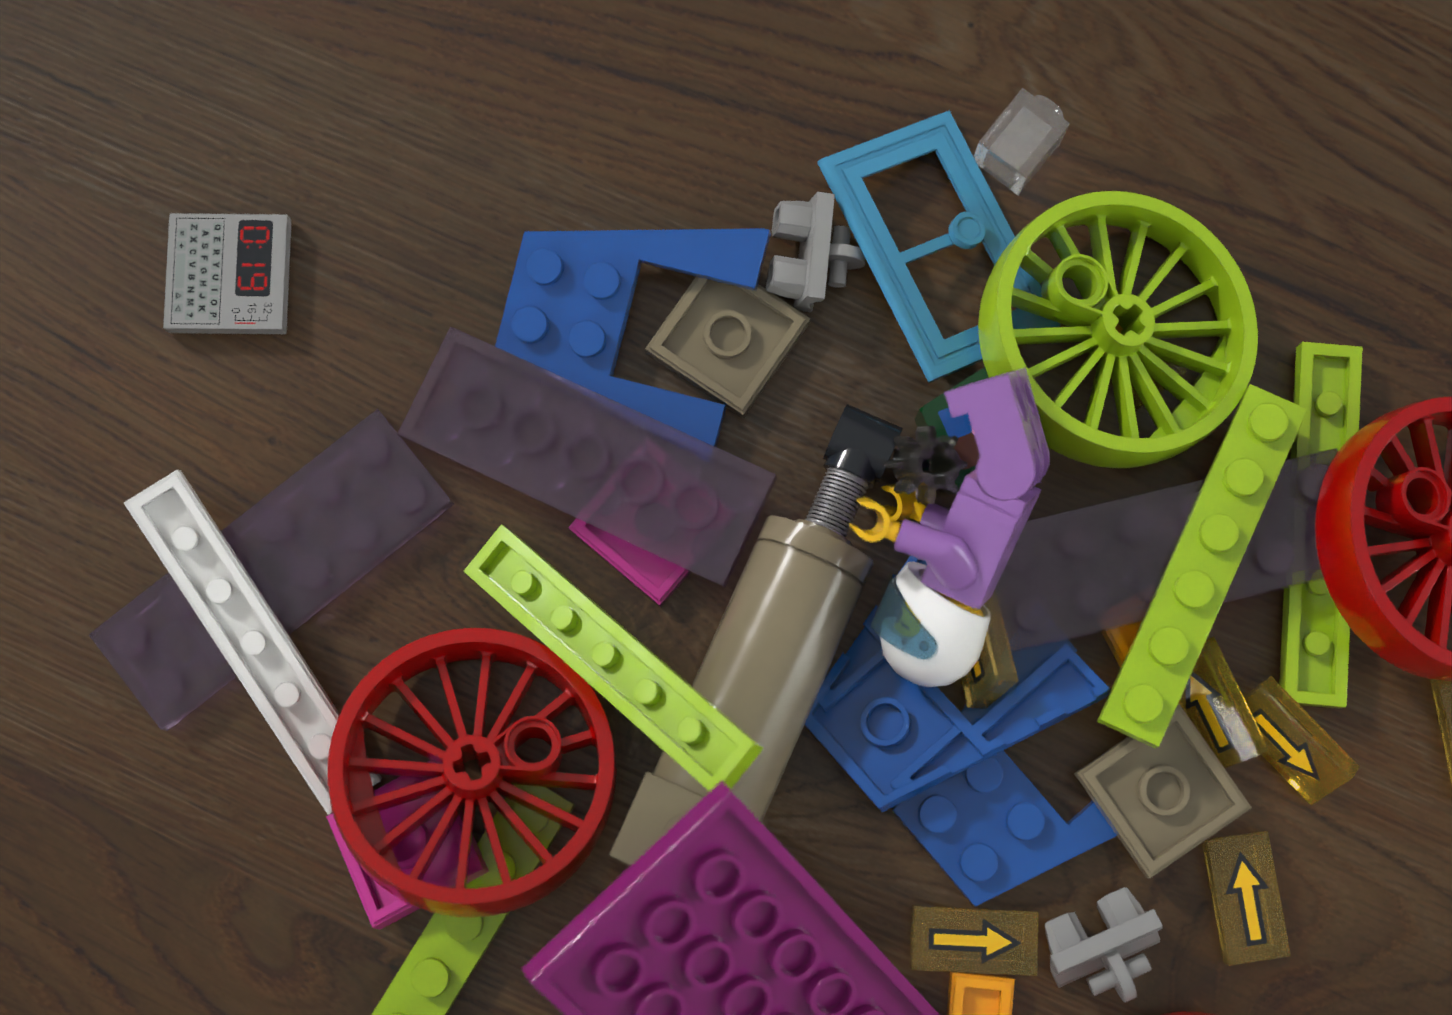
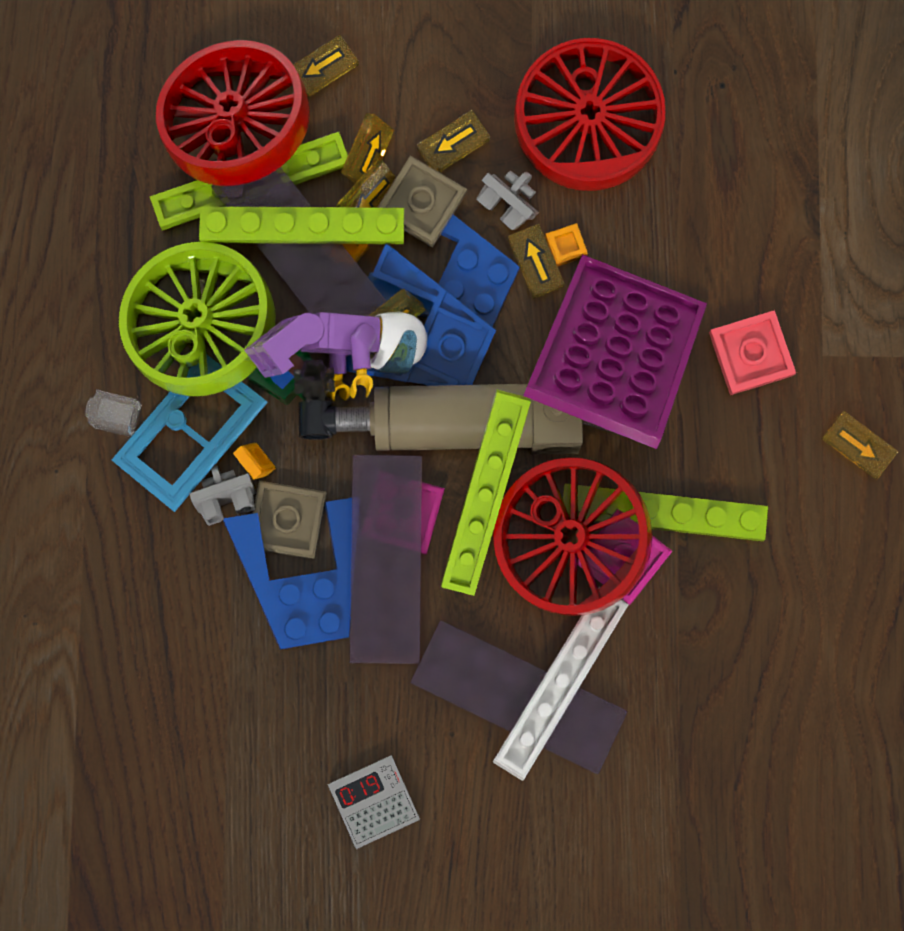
camera: 120 degrees left, 0 degrees up
(843, 322) = (254, 460): none -> light orange tile

